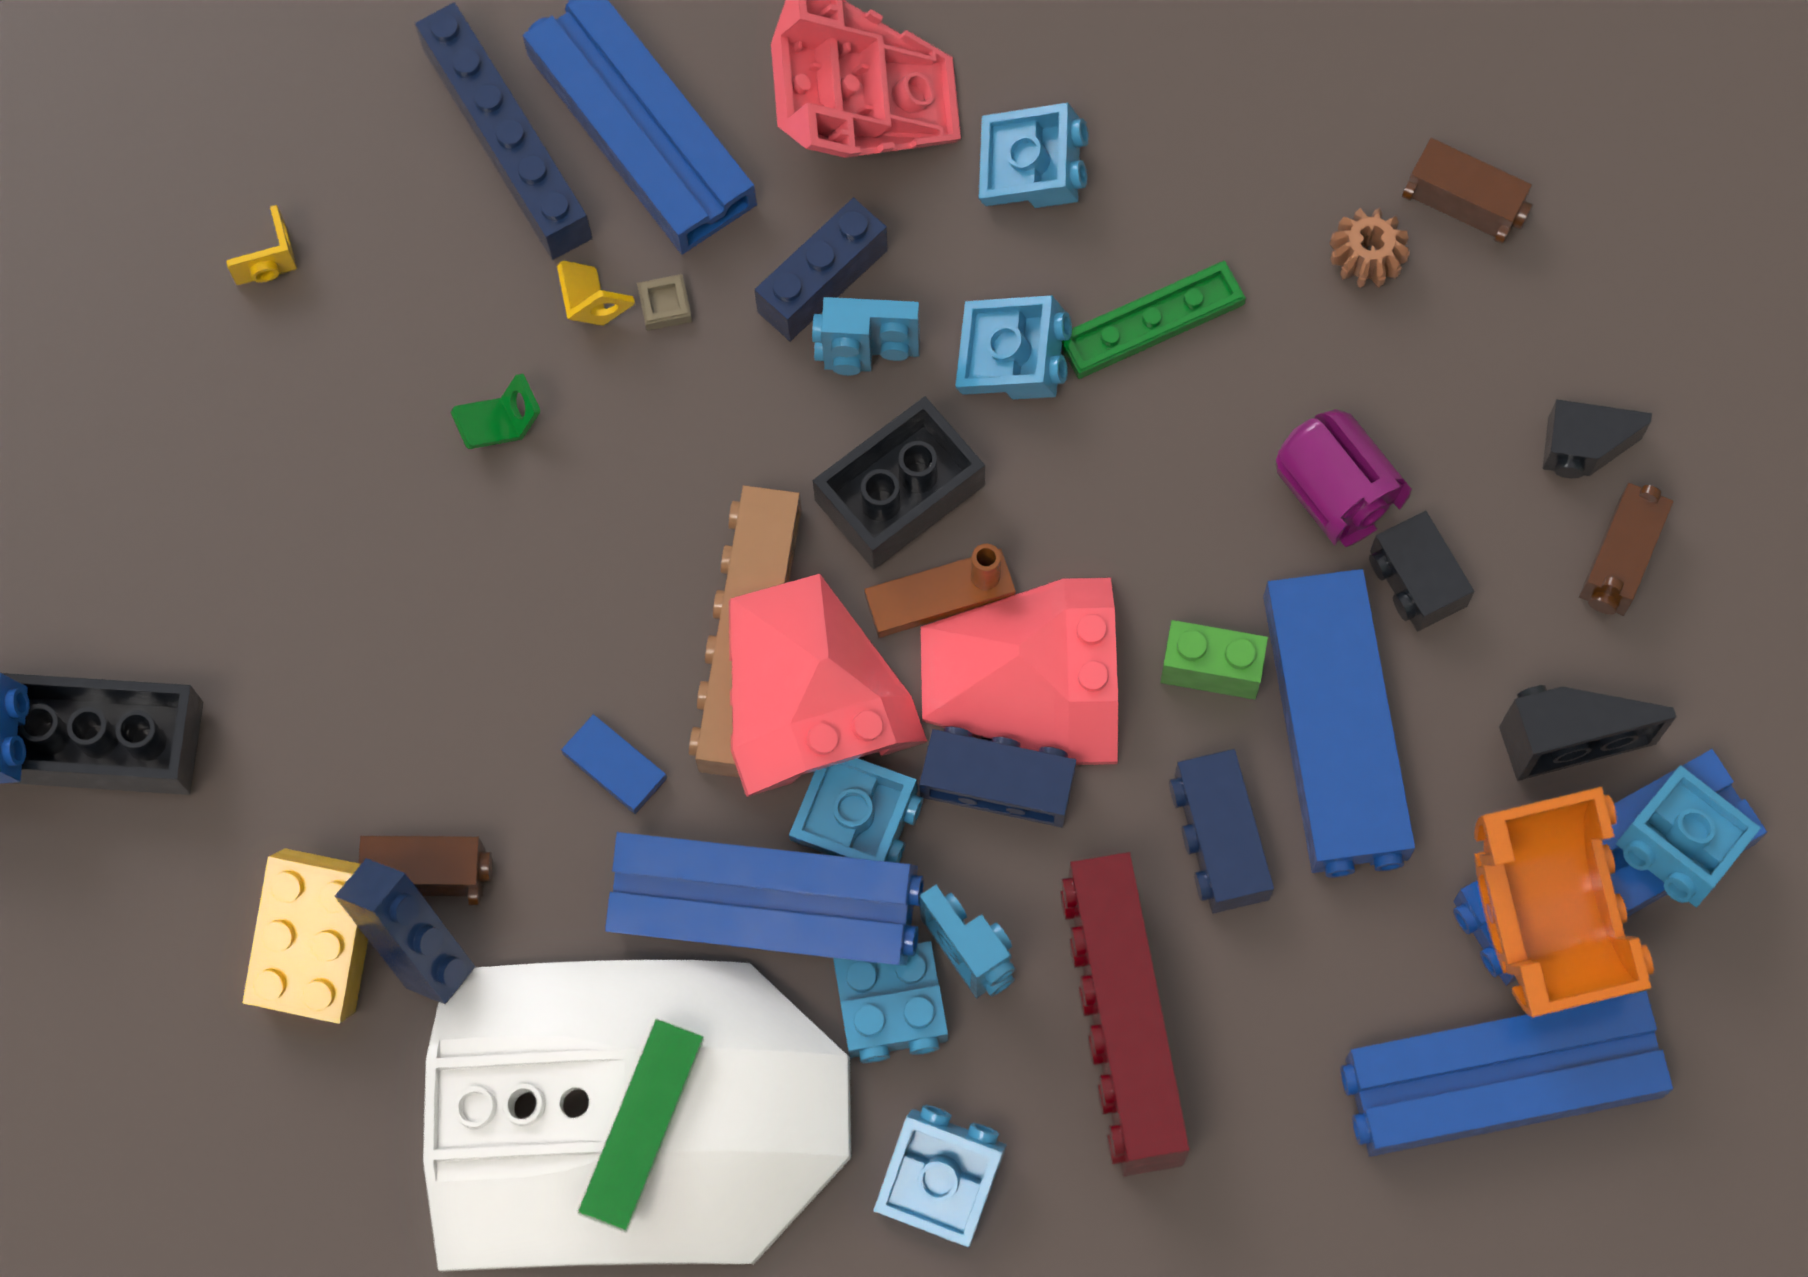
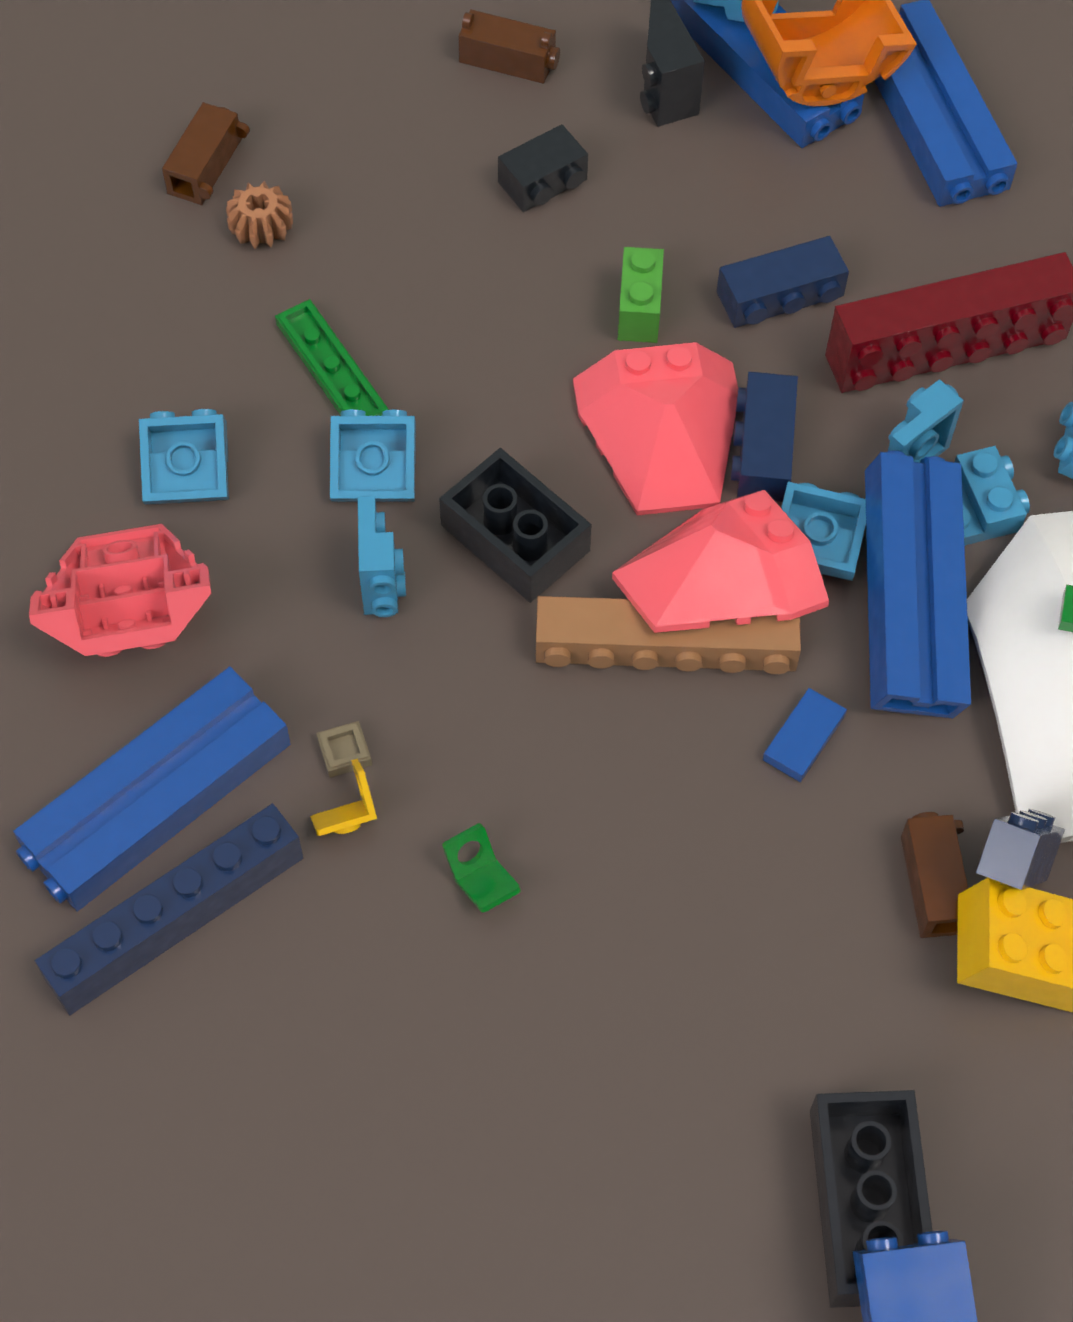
camera: 100 degrees left, 10 degrees down
(268, 263) = (316, 1104): yellow bracket -> none
(821, 269) = (308, 610): dark blue brick -> none
(940, 591) = (603, 495): dark orange piece -> none
(1338, 723) = (678, 212): blue brick -> none
(1340, 476) = (474, 213): magenta cylinder -> none
(1589, 436) = (417, 72): black slope -> none

